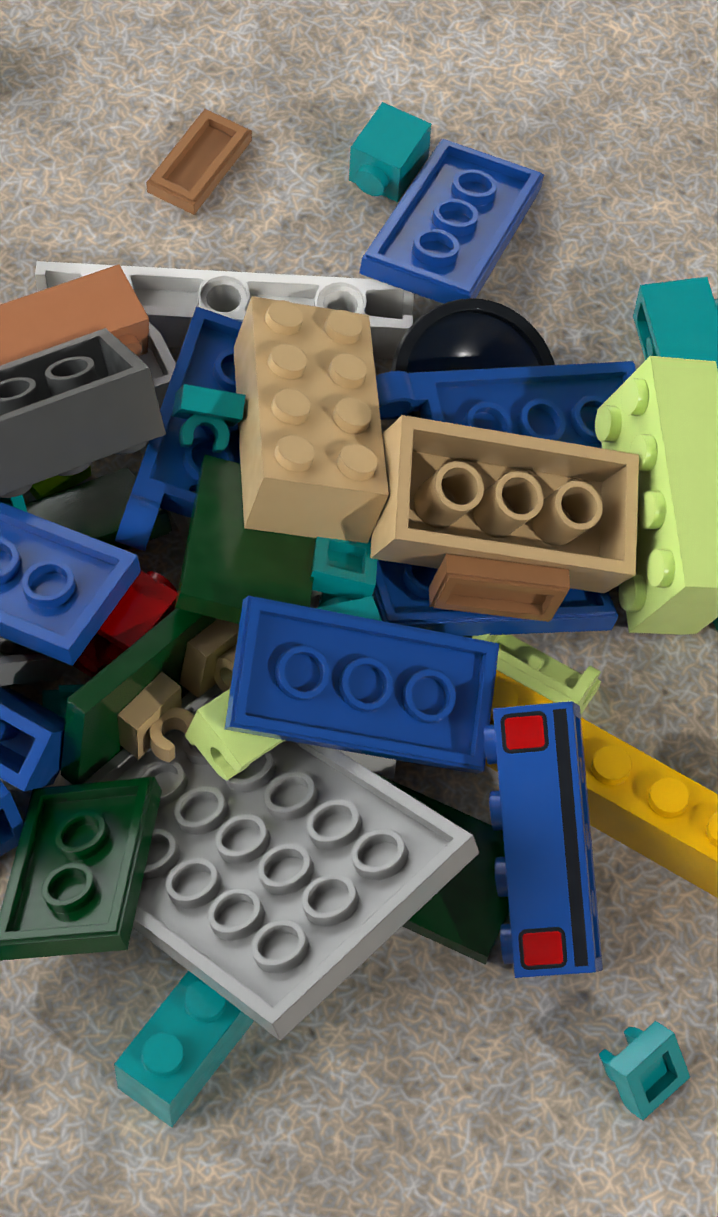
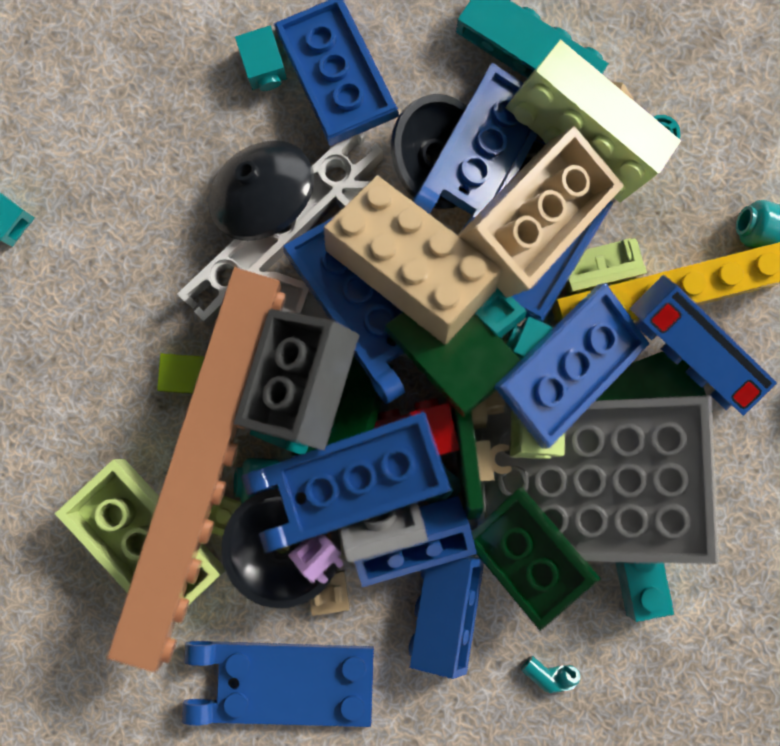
camera: 45 degrees left, 25 degrees up
(199, 161) = (175, 153): medium nougat tile -> none
(207, 408) = (360, 300): teal tile -> none
(240, 250) = (261, 190): none -> black dish
(498, 587) = (573, 252): medium nougat tile -> none

